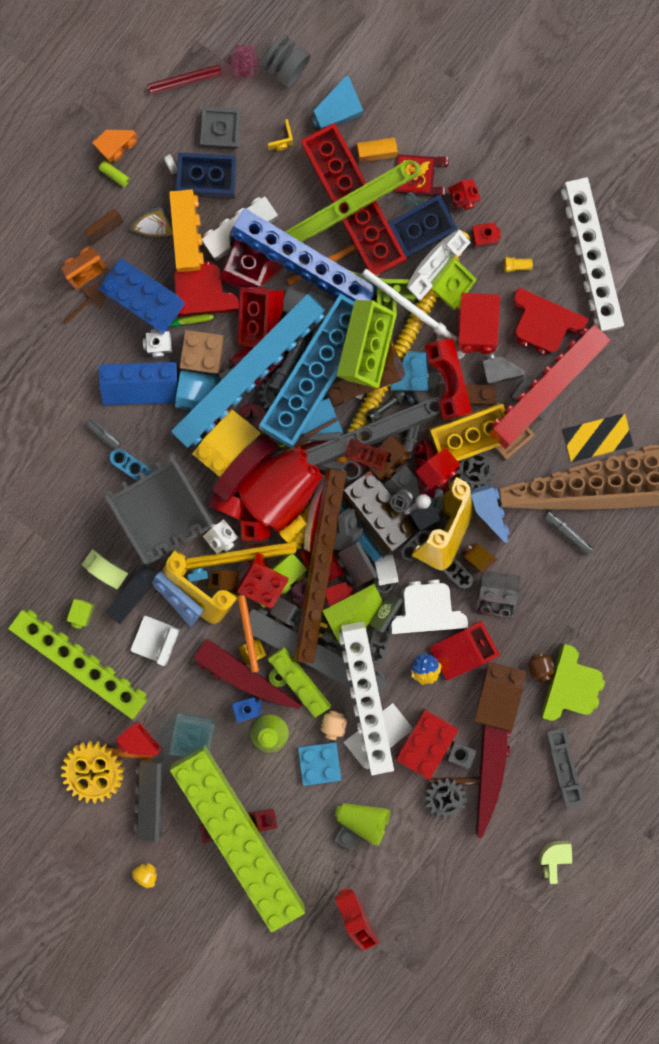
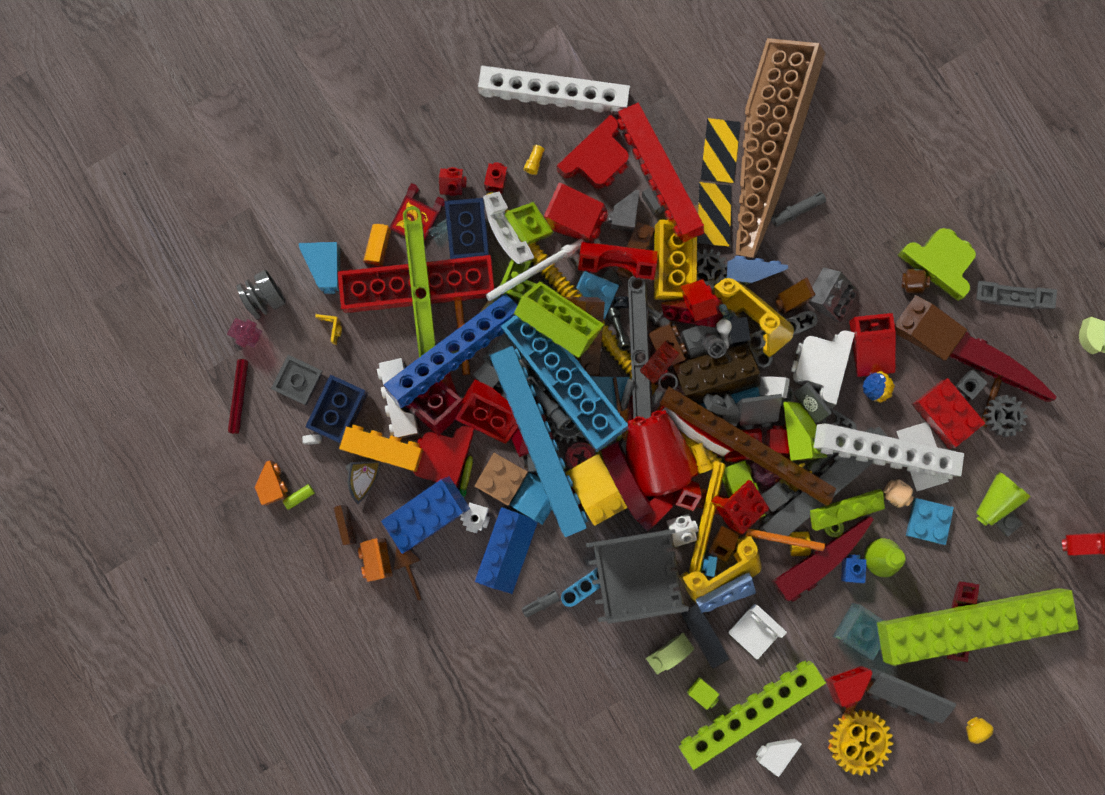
camera: 60 degrees left, 5 degrees down
(51, 700) = (777, 754): none -> white slope
(532, 454) = (715, 213): none -> sticker

